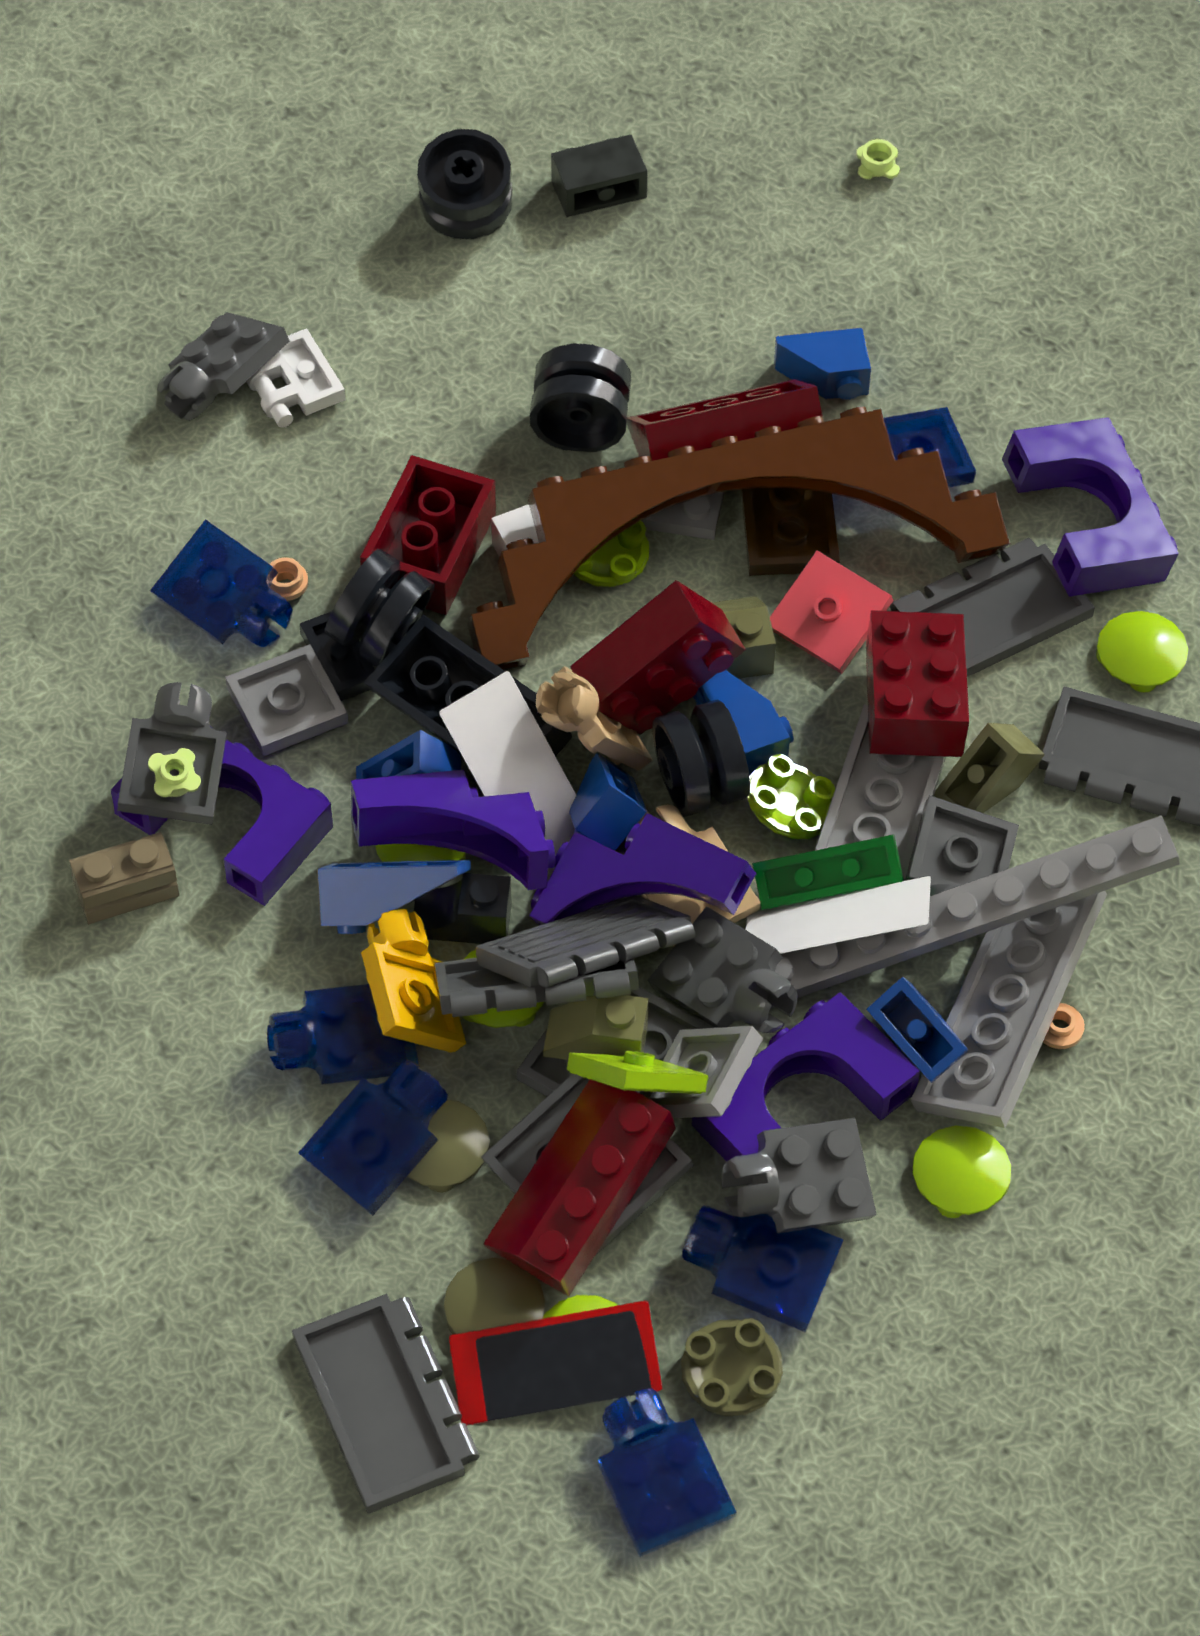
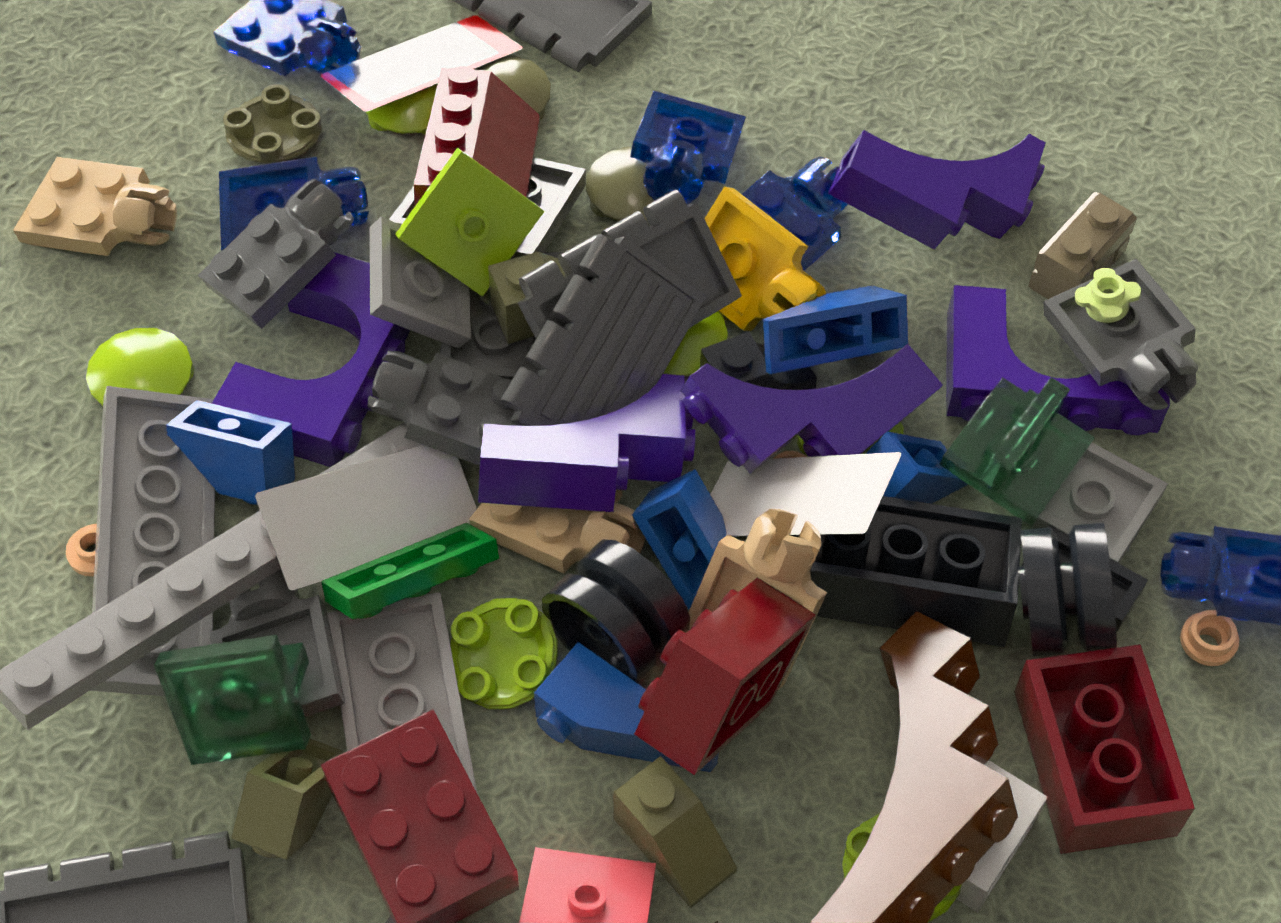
camera: 150 degrees right, 0 degrees up
(213, 966) = (935, 195): none -> dark purple arch
(325, 732) = (1018, 448): none -> clear green bracket
(936, 1352) = (95, 208): none -> tan plate
(996, 823) = (236, 698): none -> clear green bracket

